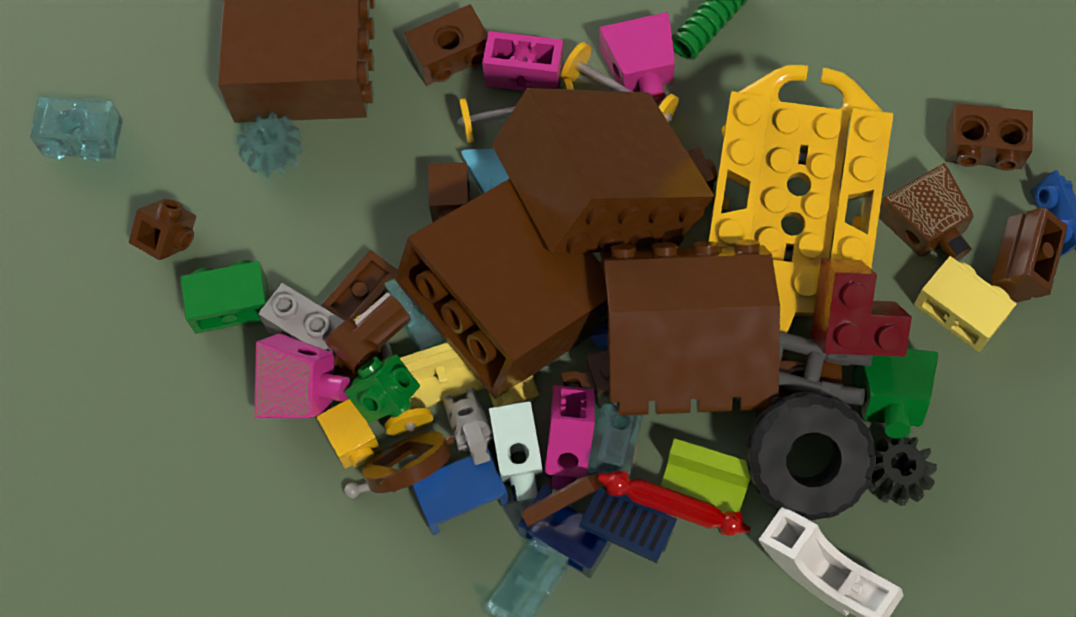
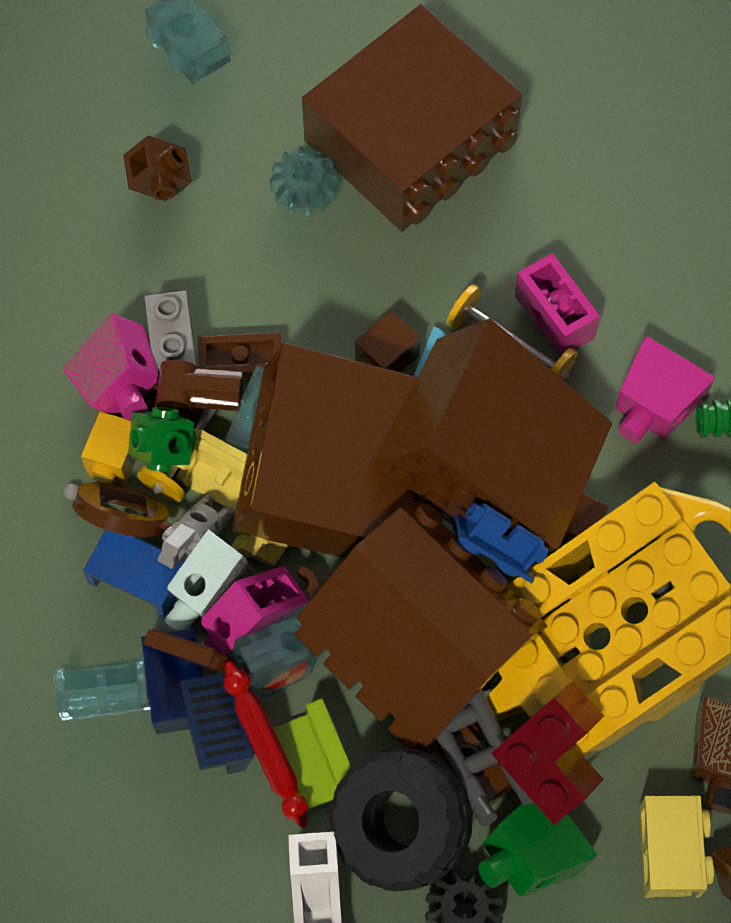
camera: 45 degrees right, 0 degrees up
(224, 296) = (142, 260): green brick -> none
(456, 29) = (510, 218): reddish brown brick -> none
(577, 64) = (599, 348): yellow axle -> none
(676, 221) = (483, 533): none -> blue hinge

